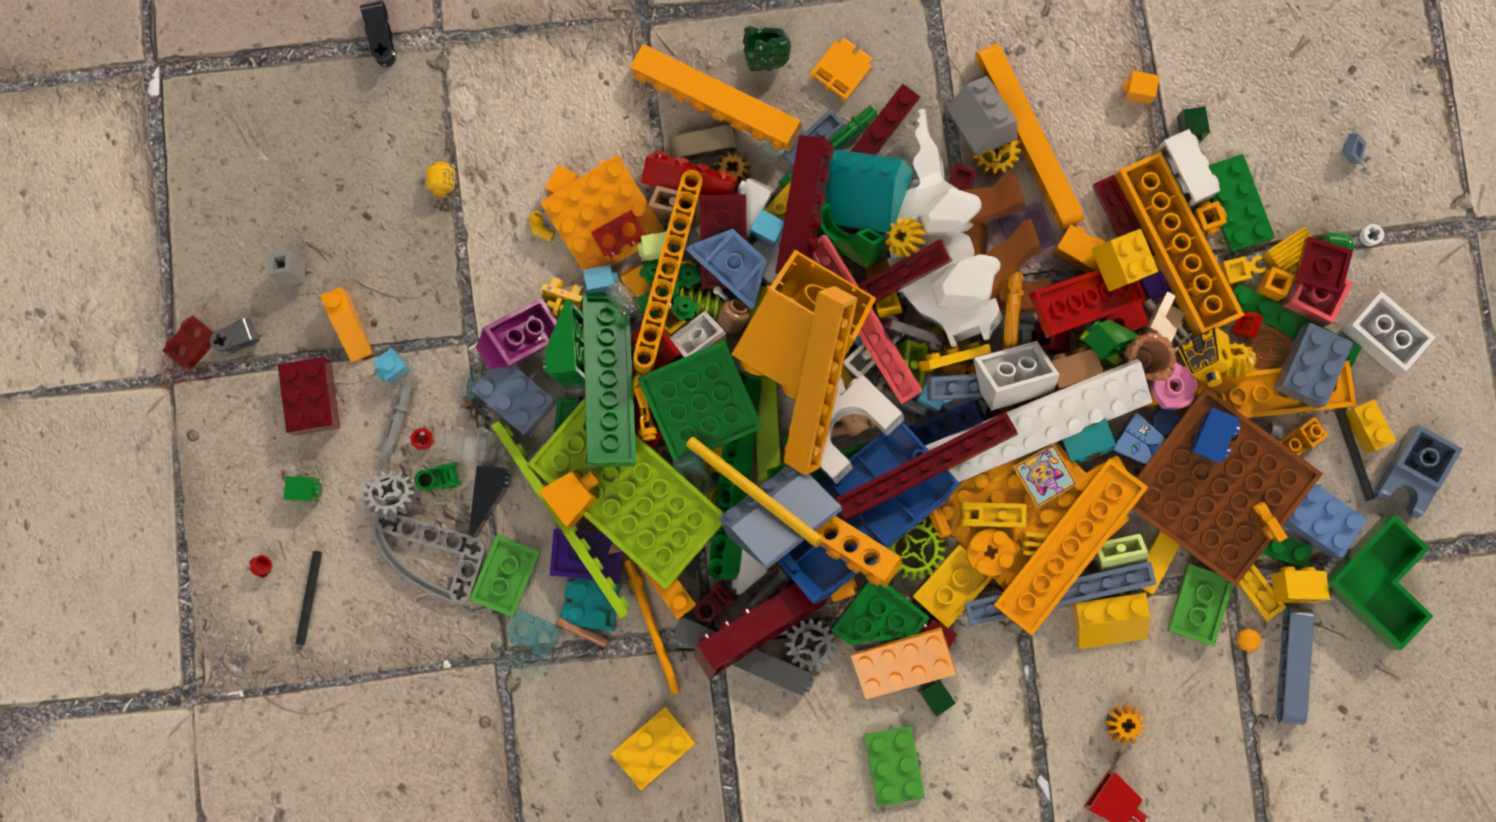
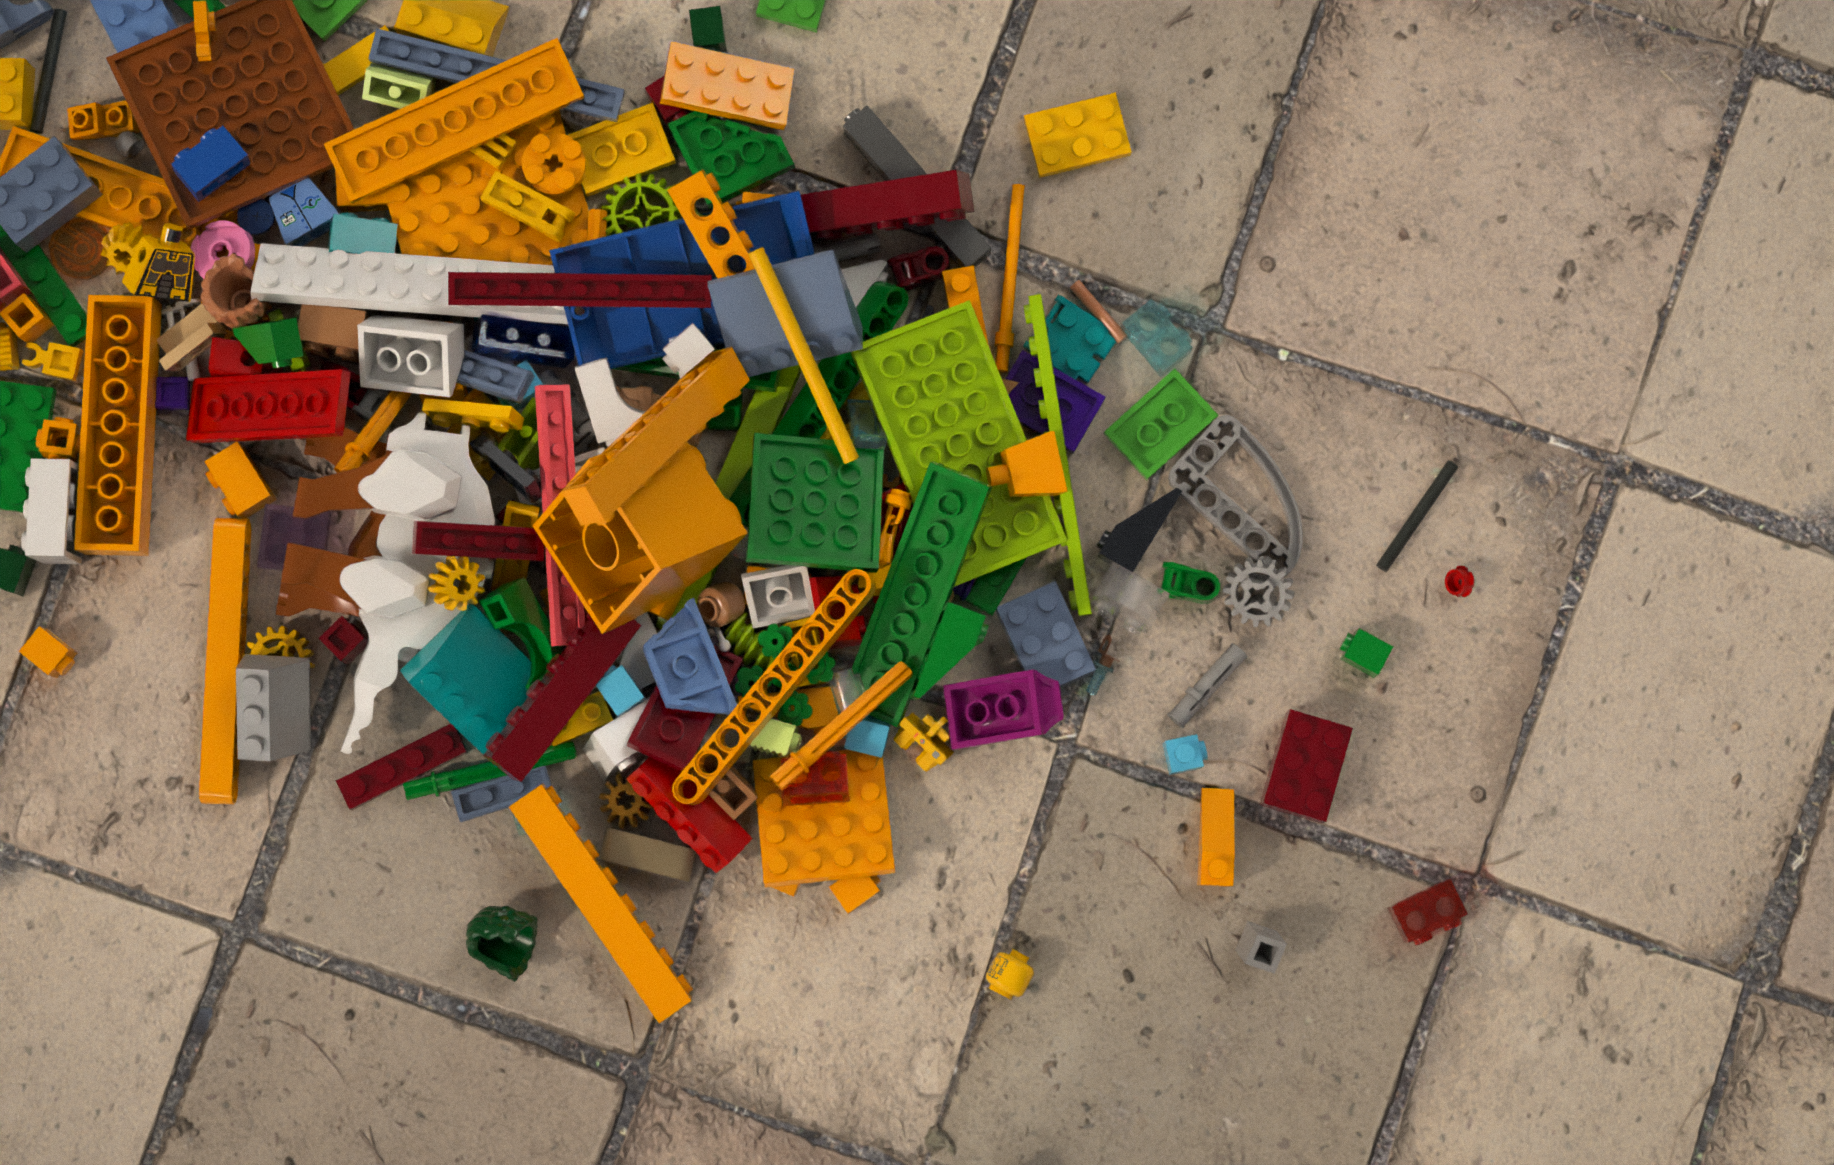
camera: 150 degrees left, 0 degrees up
(238, 336) = (1362, 891): dark grey piece -> none
(422, 439) = (1187, 644): red tile -> none
(537, 226) = (913, 850): yellow arm -> none
(615, 271) = (841, 725): none -> light orange axle
(825, 639) = (839, 165): light grey gear -> none
(833, 459) = (687, 349): none -> white brick
(842, 68) = (416, 867): light orange plate -> none
(1045, 475) = (439, 221): tile -> none
(1117, 207) = (166, 493): dark red plate -> none
(1124, 260) = (196, 433): yellow brick -> none
(1247, 325) = (87, 283): red plate -> none

